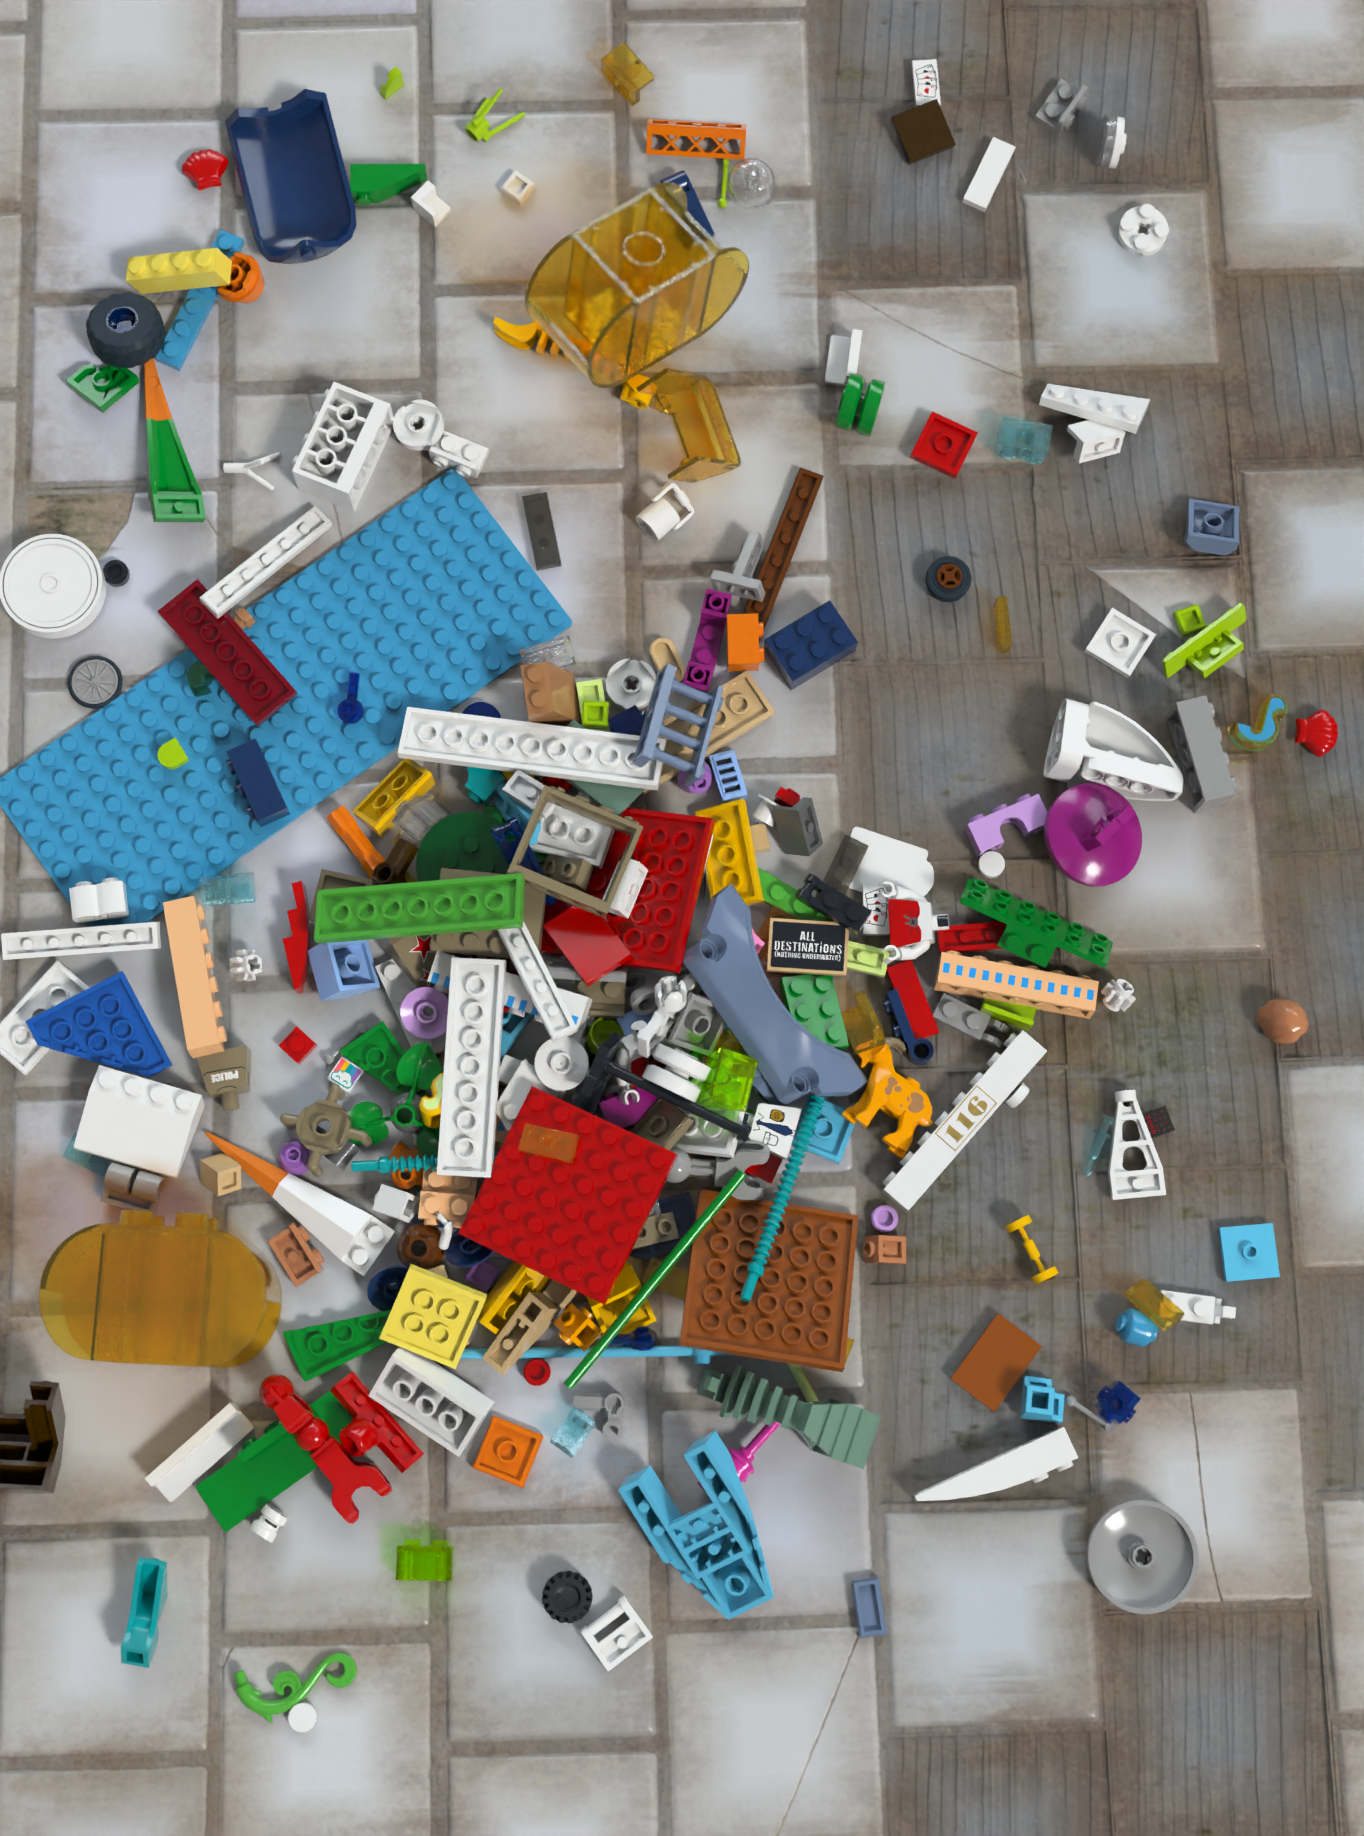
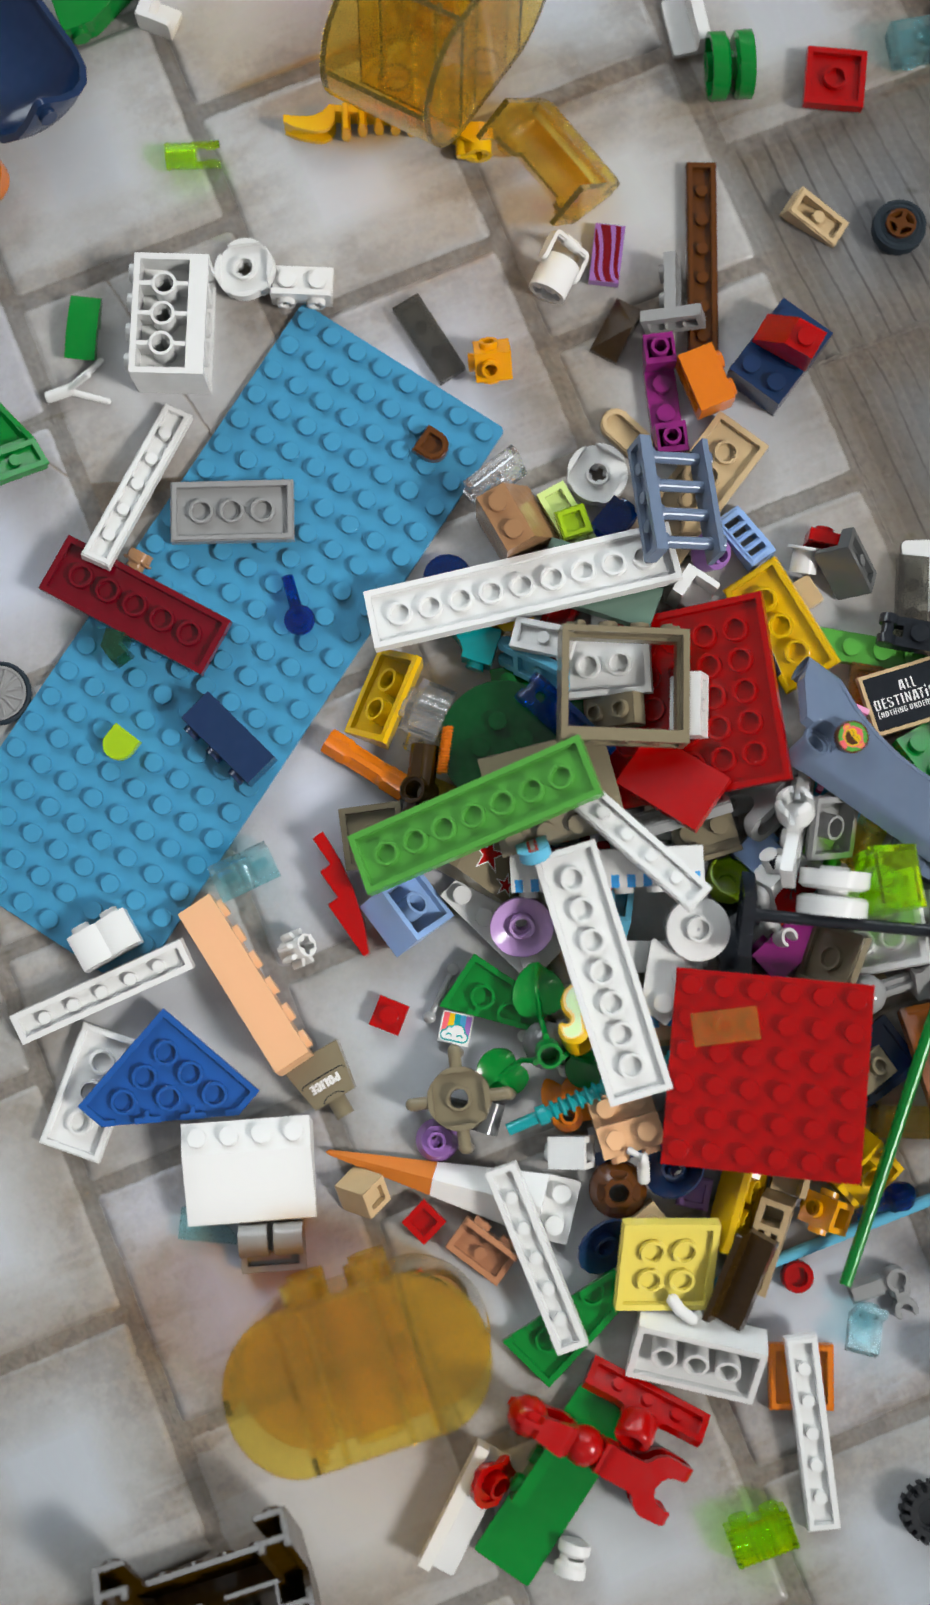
camera: 15 degrees left, 5 degrees up
(228, 1436) = (491, 1482): none -> red animal
(259, 1215) = (424, 1221): none -> red plate
(273, 424) = (83, 328): none -> green slope
(332, 608) = (232, 512): none -> light grey tile
(334, 1273) = (537, 1257): none -> white plate
(408, 321) = (184, 155): none -> clear neon green hinge
(422, 849) = (445, 746): none -> orange piece
(431, 1359) = (682, 1311): none -> white piece
(454, 952) = (534, 851): none -> medium azure tile
(486, 1349) = (741, 1278): none -> dark brown panel
(497, 1497) = (811, 1431): none -> white tile
(509, 614) = (431, 445): none -> reddish brown tile
(581, 565) = (491, 360): none -> light orange brick
(666, 799) = (693, 589): none -> white panel
(692, 579) = (616, 331): none -> dark brown slope
(708, 516) = (606, 255): none -> tile
(734, 955) = (851, 737): none -> tile
(818, 634) = (790, 339): none -> red slope
(885, 547) = (814, 217): none -> tan slope

